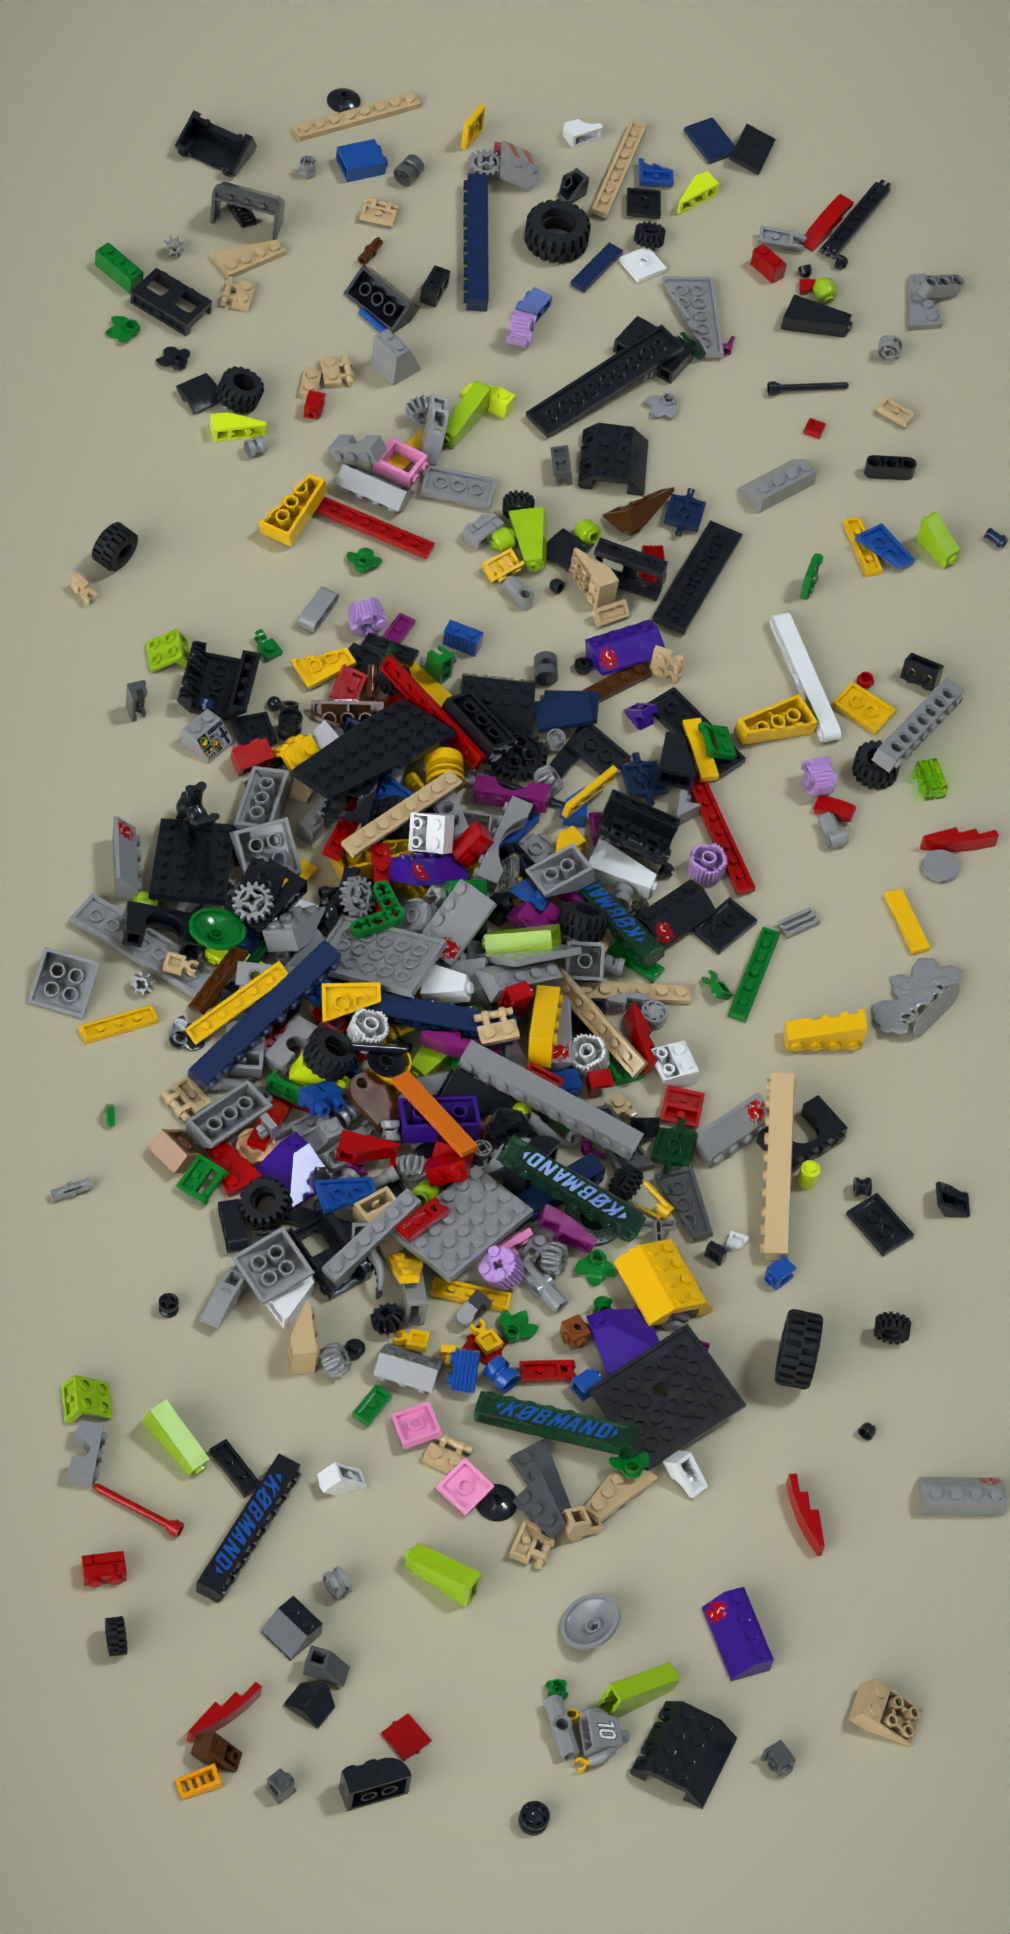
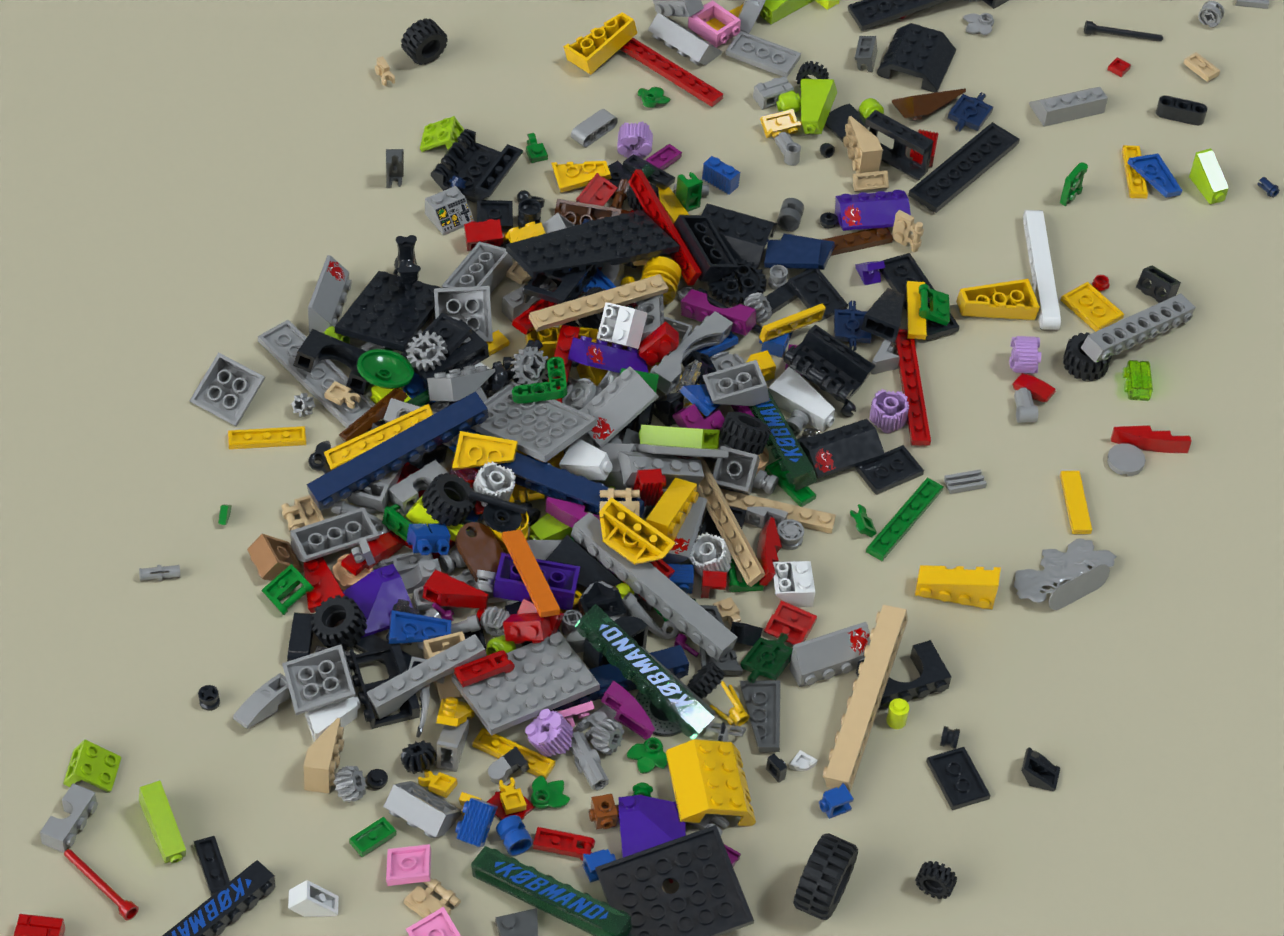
camera: 20 degrees right, 5 degrees down
(521, 1055) = (632, 535): none -> yellow wedge

